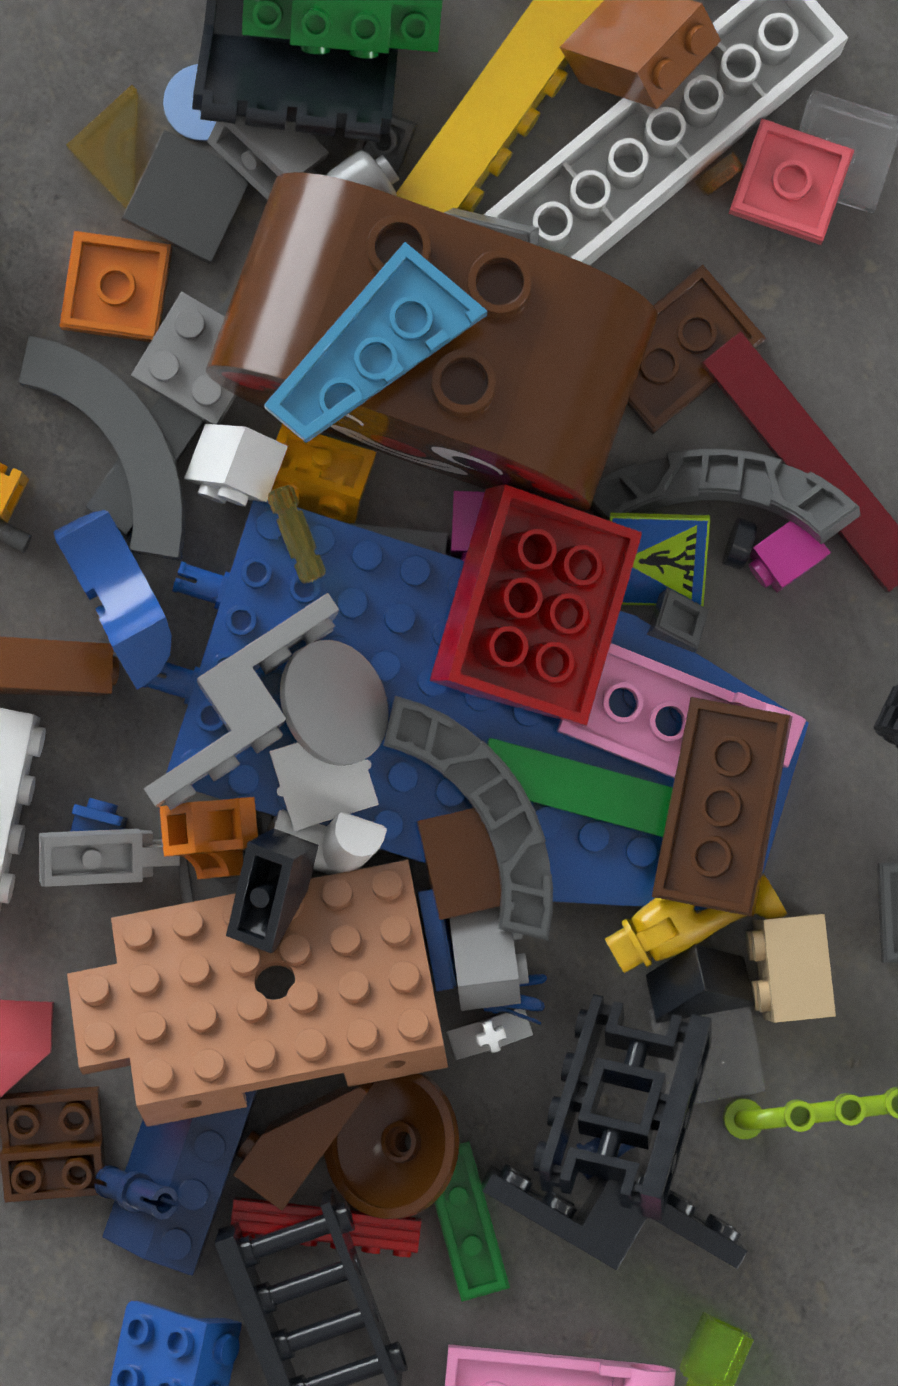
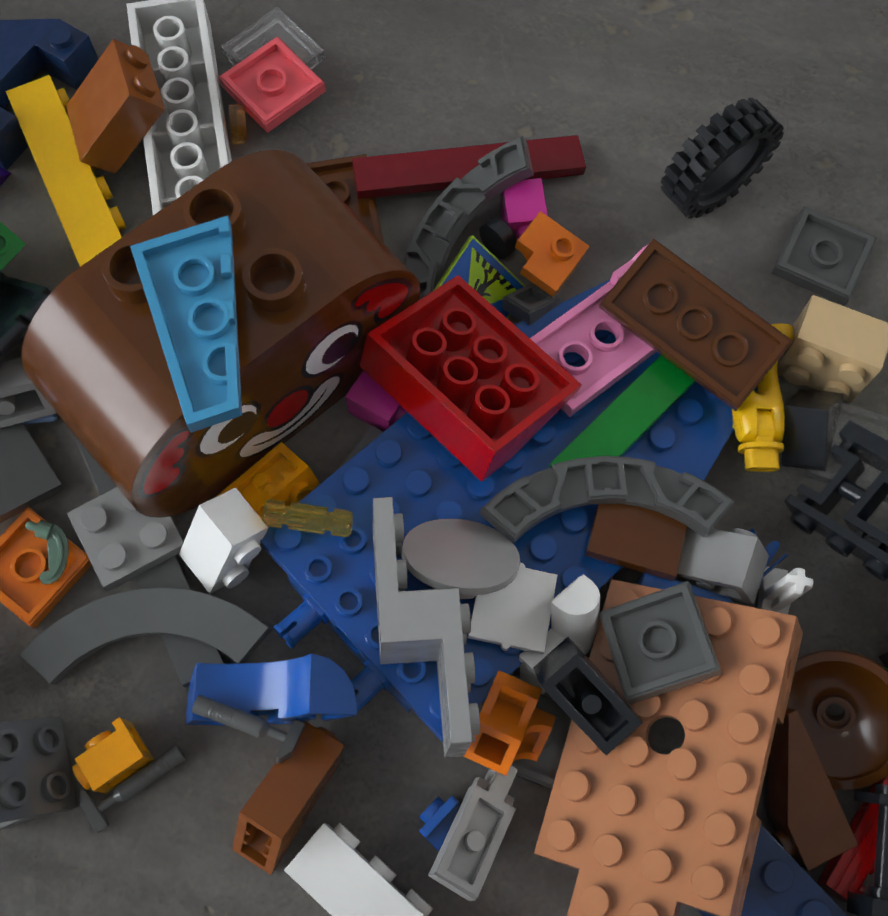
camera: 60 degrees left, 15 degrees down
(79, 596) = (250, 724): none -> dark grey piece
(143, 304) = (57, 549): none -> sand green piece
(357, 933) = (659, 643): none -> dark grey tile
(740, 614) = (550, 253): none -> orange brick

